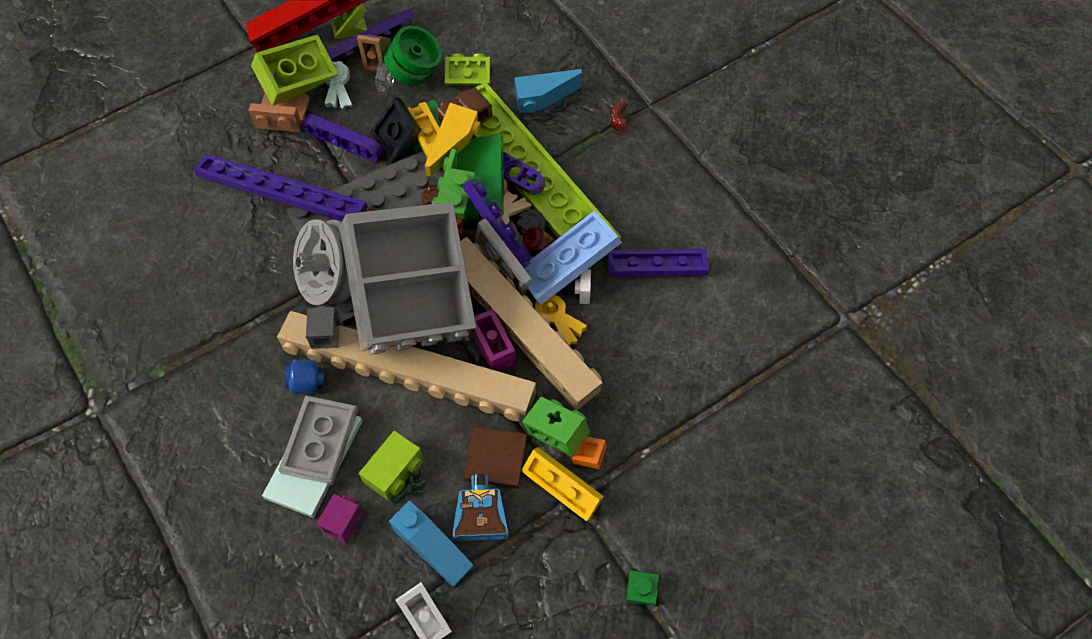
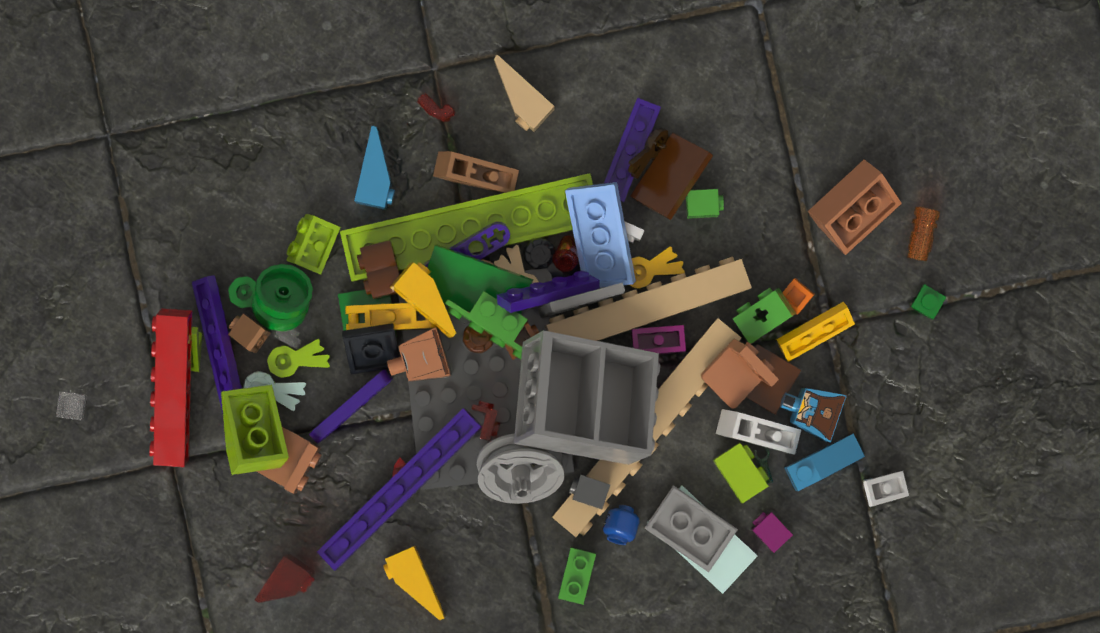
camera: 65 degrees left, 25 degrees up
(174, 133) = (287, 580): none -> clear red slope
(201, 230) = (411, 576): none -> yellow slope
(241, 355) = (577, 575): none -> bright green brick
(364, 85) = (285, 361): none -> lime piece
(400, 163) = (421, 358): none -> nougat torso
(439, 468) = (758, 431): none -> white slope
(487, 417) = (737, 373): none -> nougat bracket
(579, 154) = (475, 172): none -> medium nougat slope
(638, 336) = (704, 203): none -> bright green brick
(651, 299) = (671, 176): none -> reddish brown tile
(658, 167) = (525, 100): none -> tan slope
(671, 277) = (653, 145): none -> dark brown piece
(703, 474) = (855, 206): none -> nougat slope
(706, 552) = (922, 234): none -> clear orange axle

